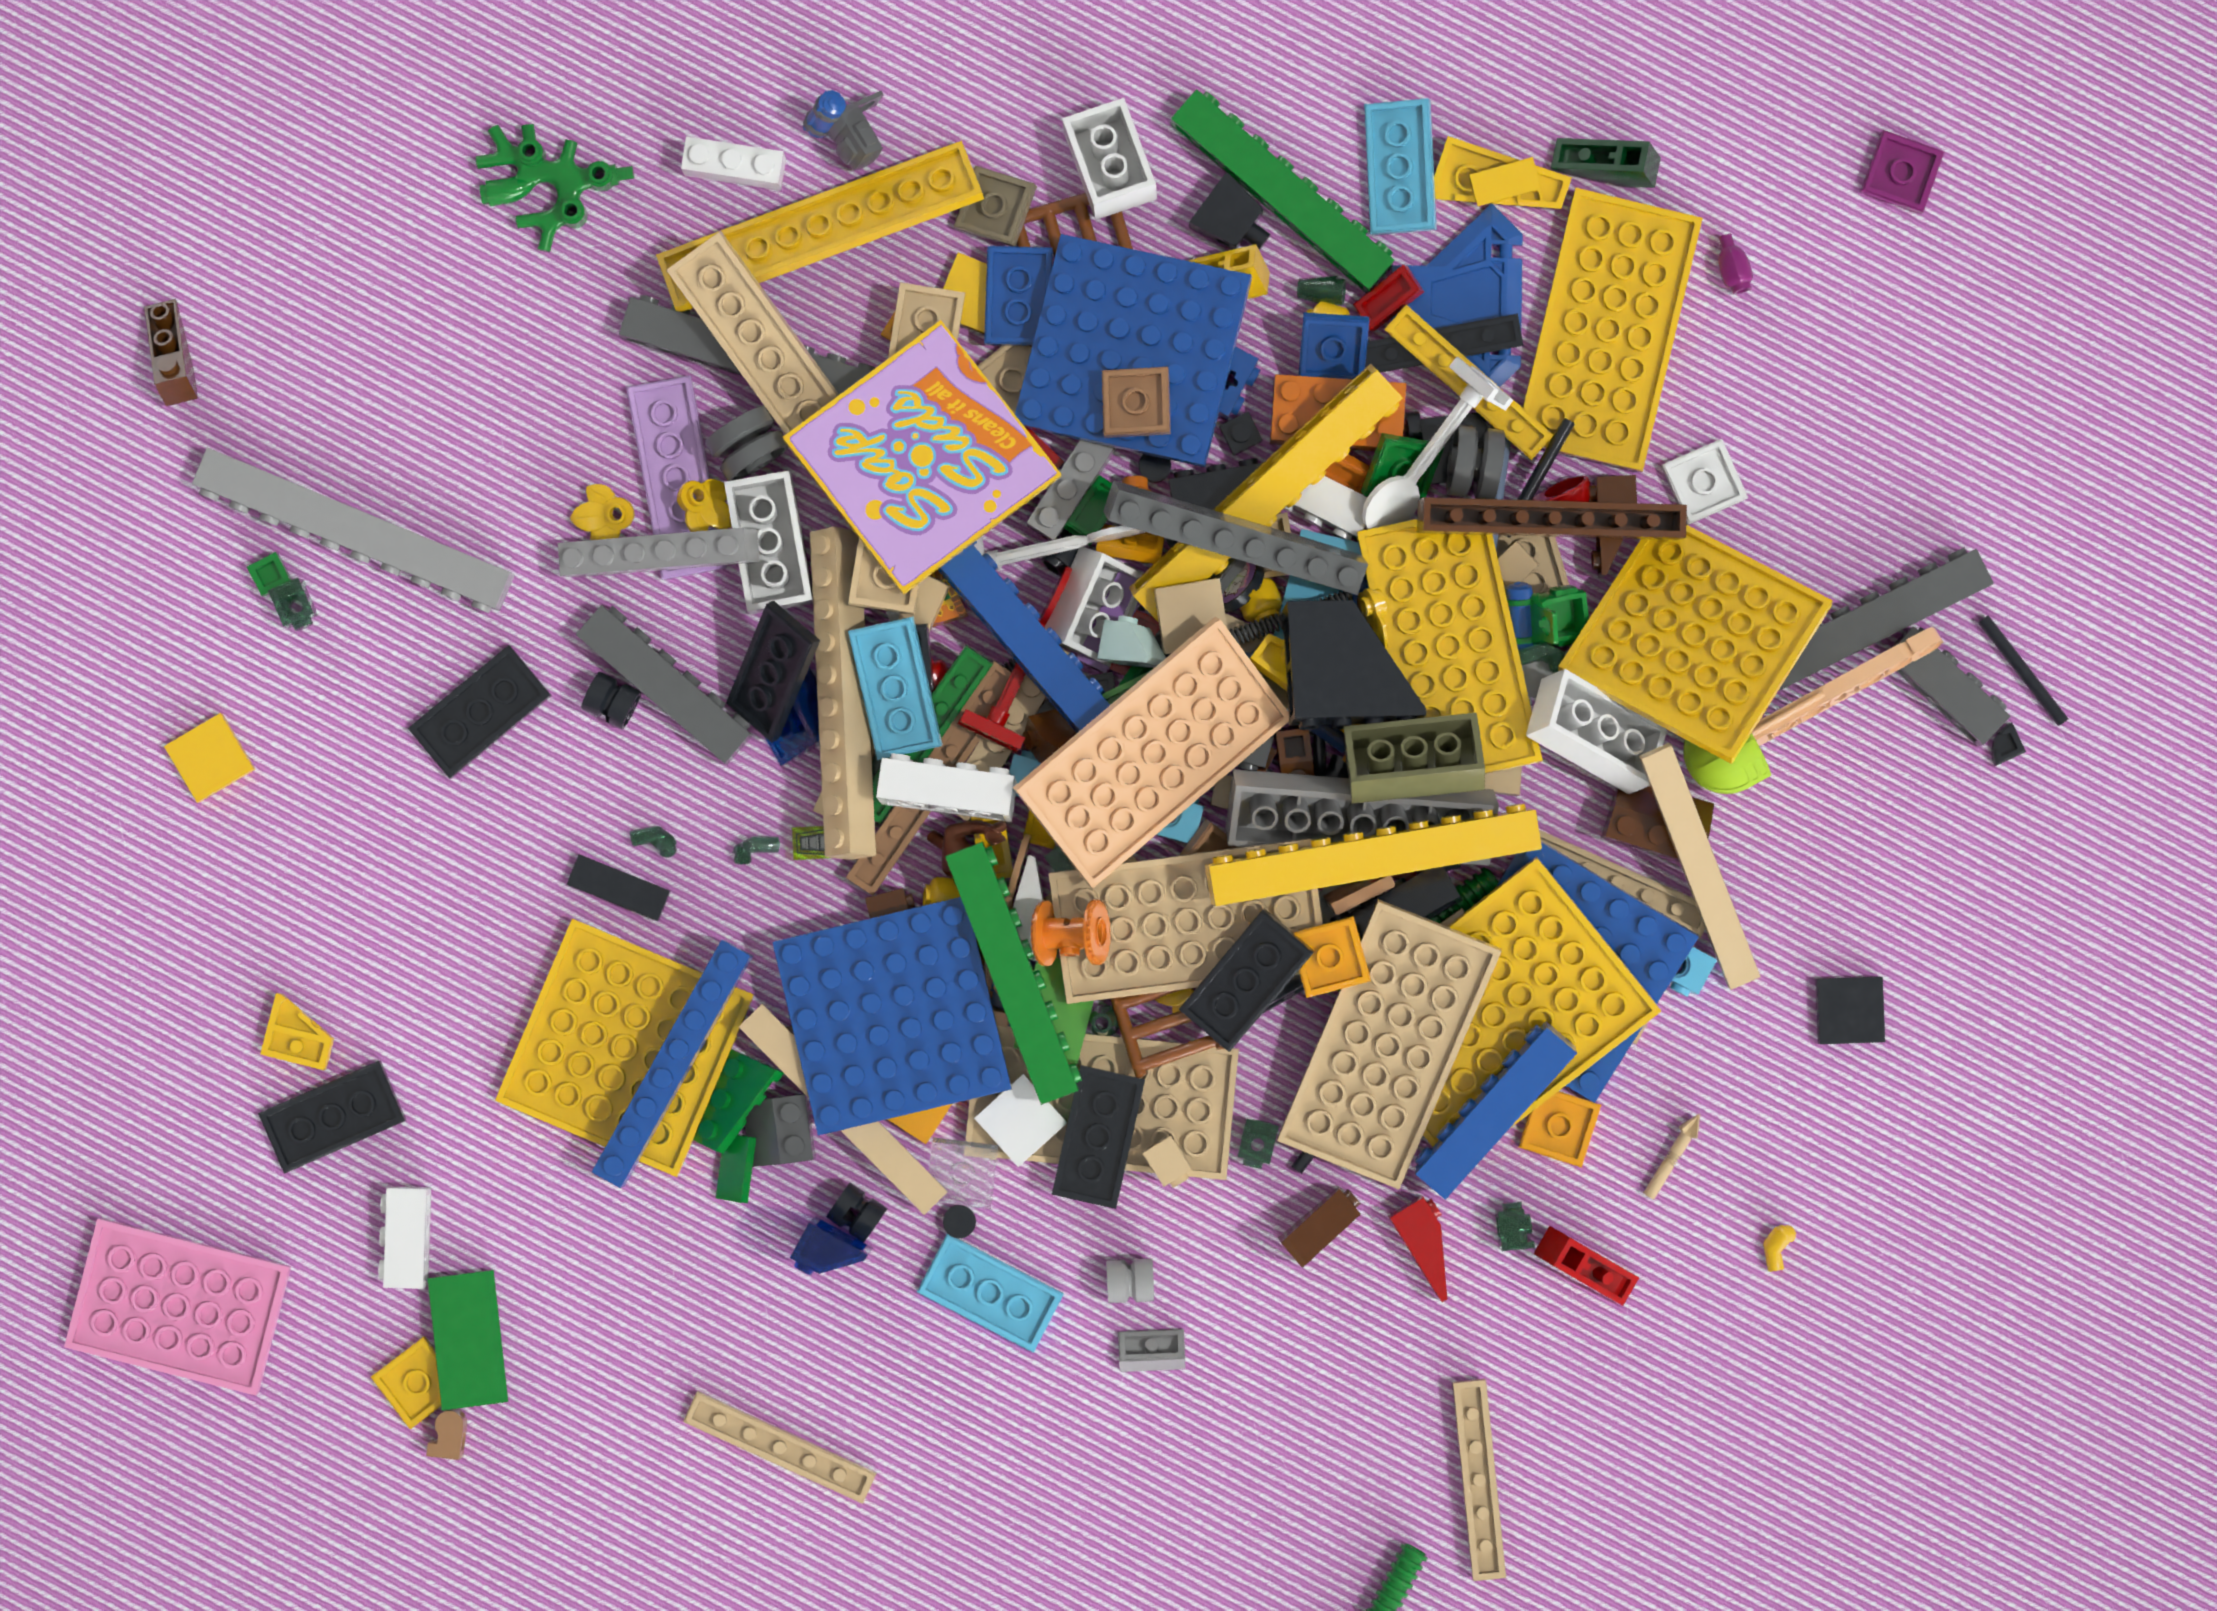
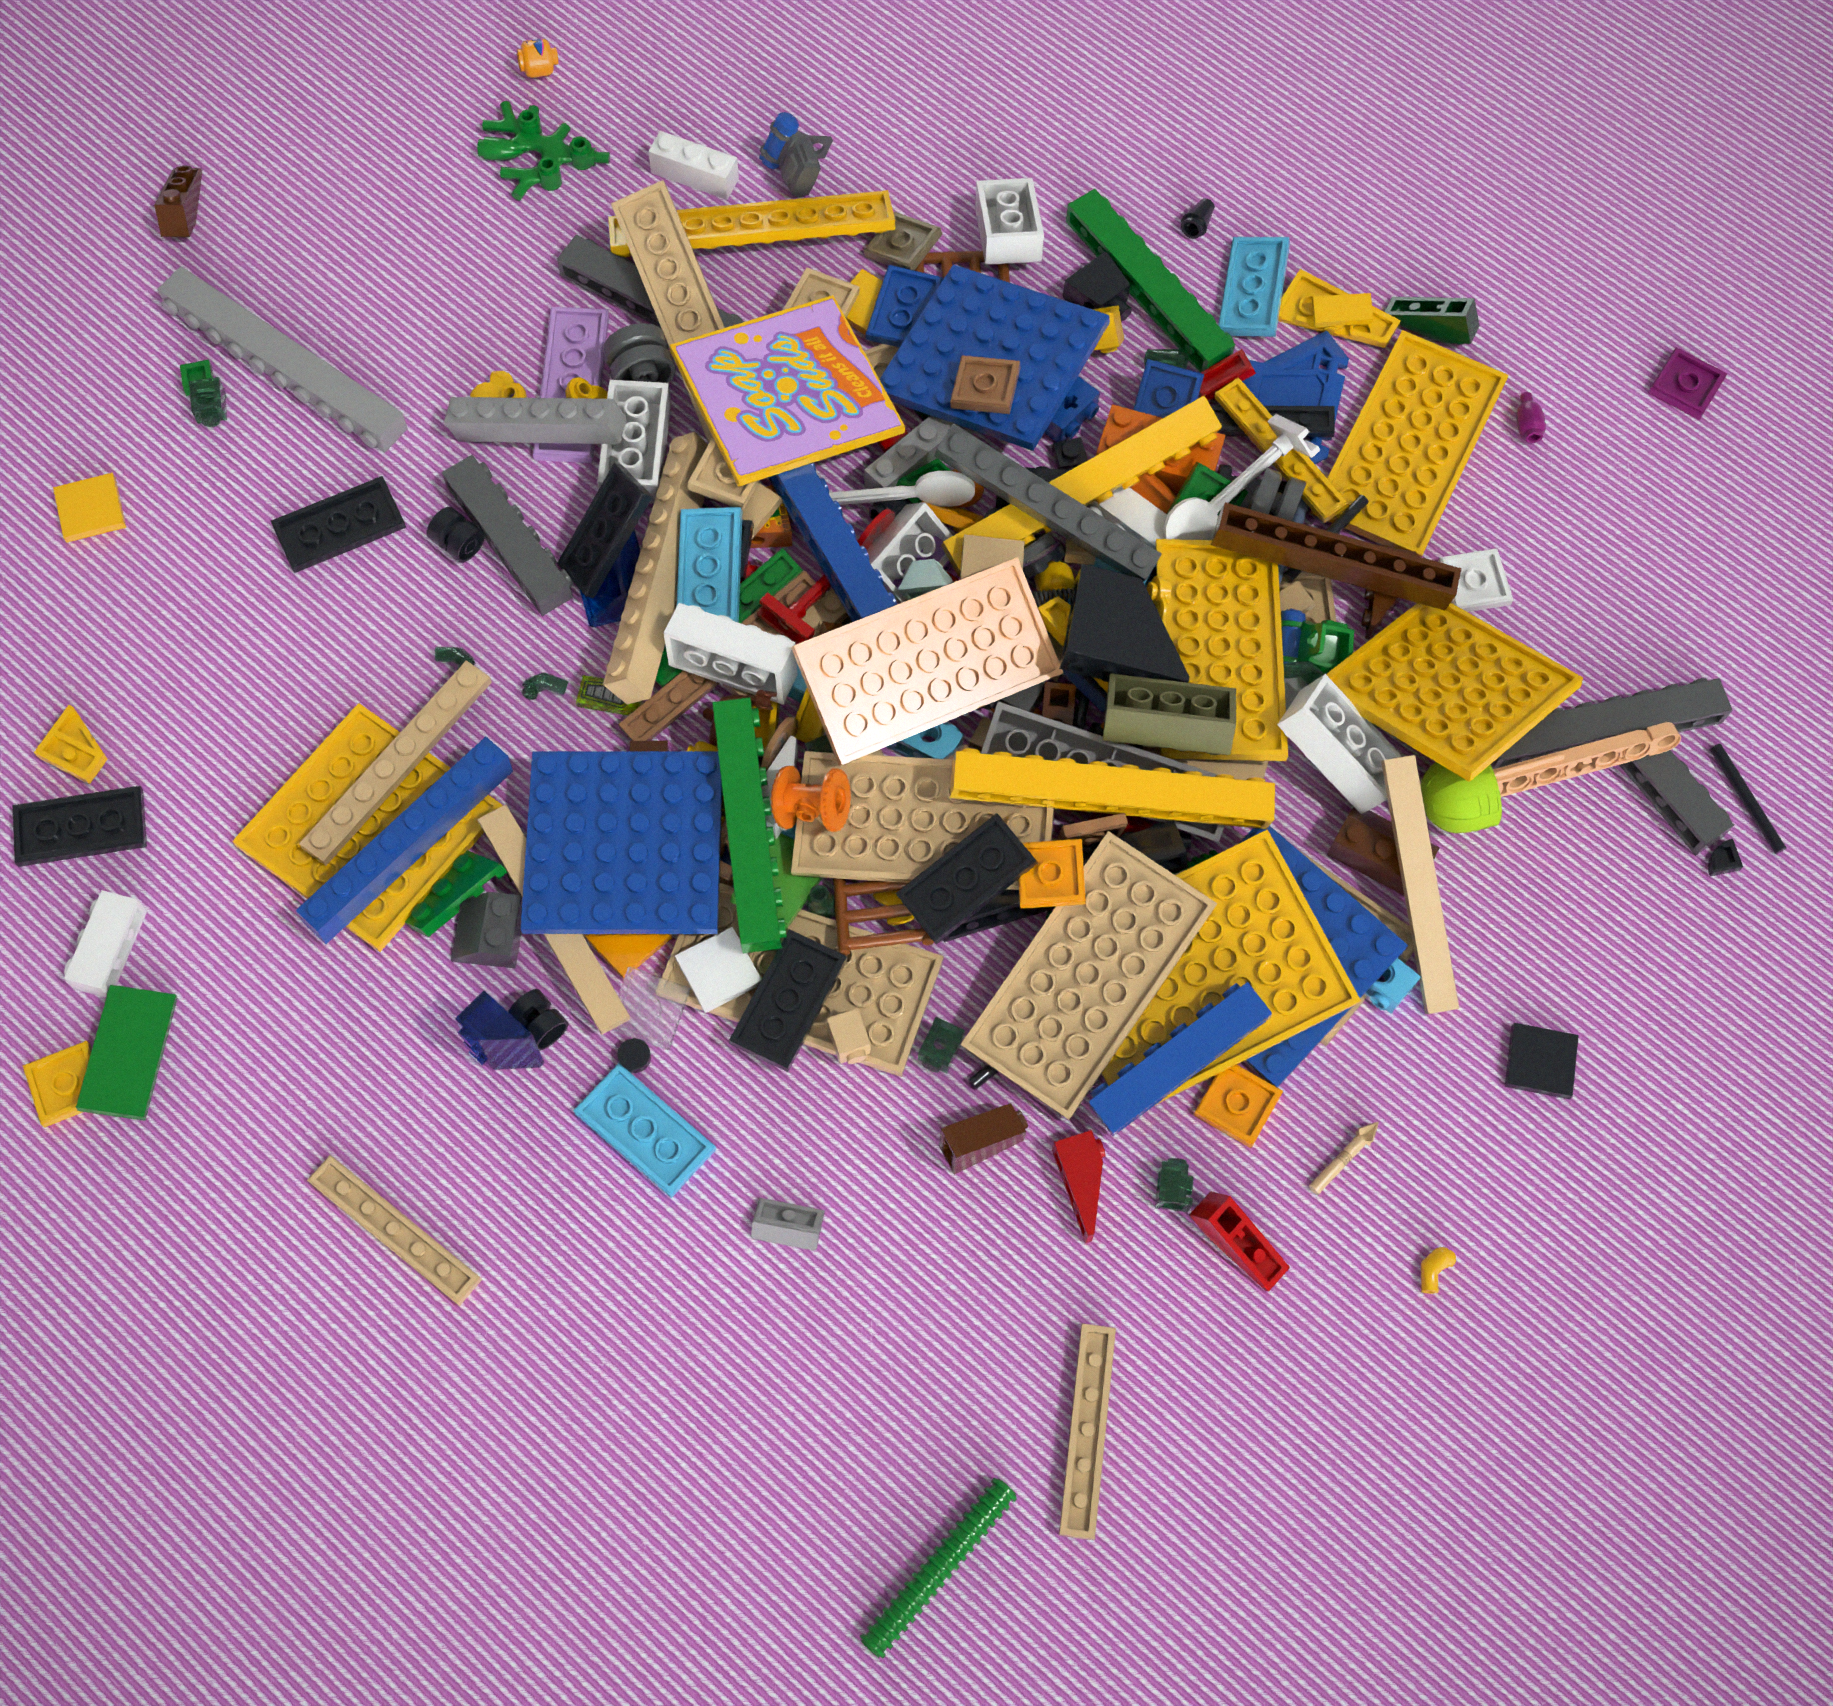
camera: 15 degrees right, 20 degrees down
(451, 1431) = (77, 1139): medium nougat leg -> none
(512, 59) = (537, 58): none -> light orange head
(618, 887) = (400, 684): black tile -> none
(633, 976) = (395, 763): none -> tan plate
(736, 1170) = (436, 955): green tile -> none
(1130, 1280) = (784, 1146): light grey wheel -> none
(1320, 90) = (1197, 219): none -> black cone

